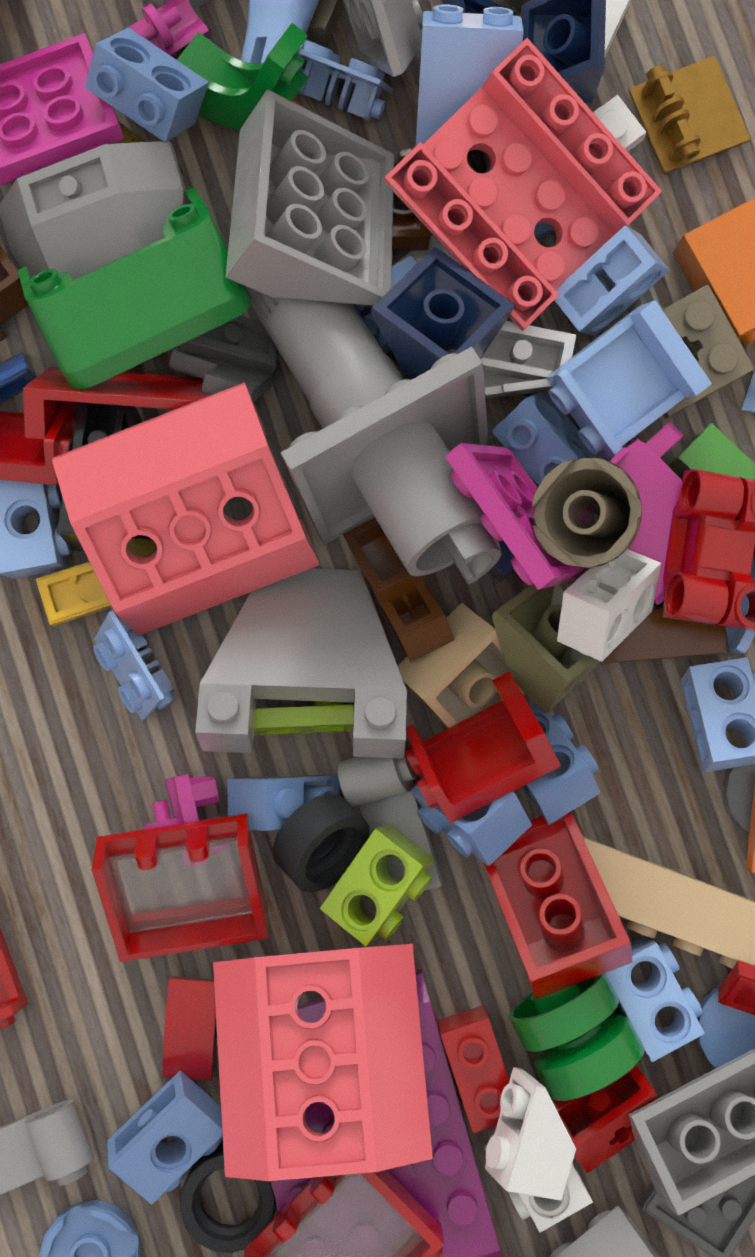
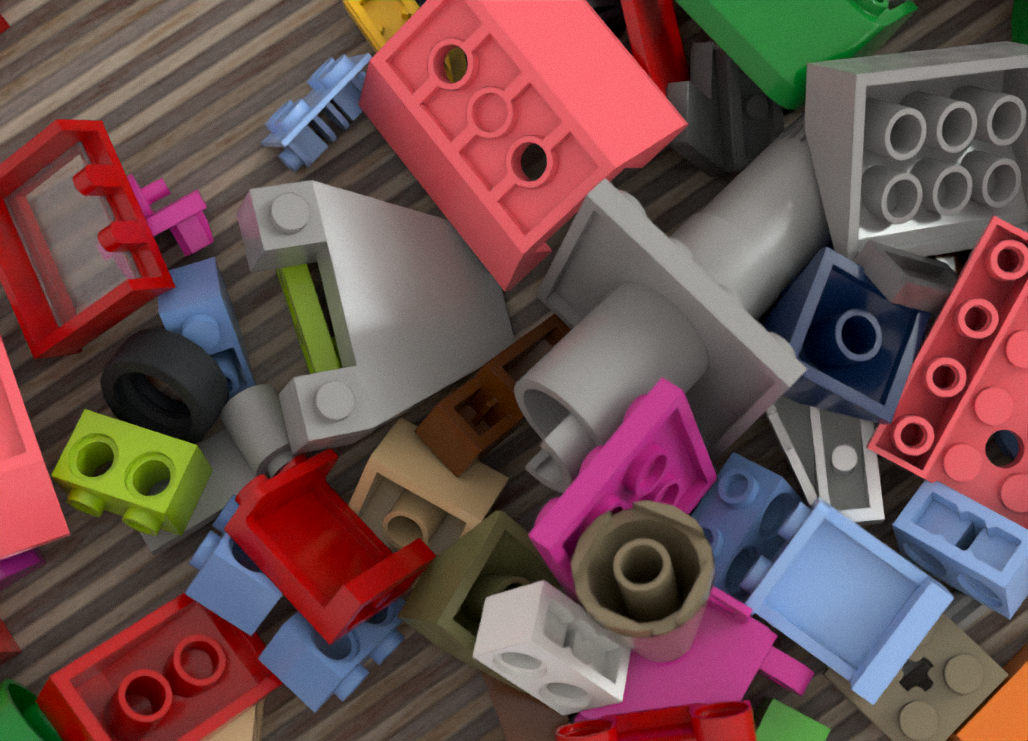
camera: 75 degrees right, 5 degrees down
(408, 256) = (907, 276): none -> flat silver tile

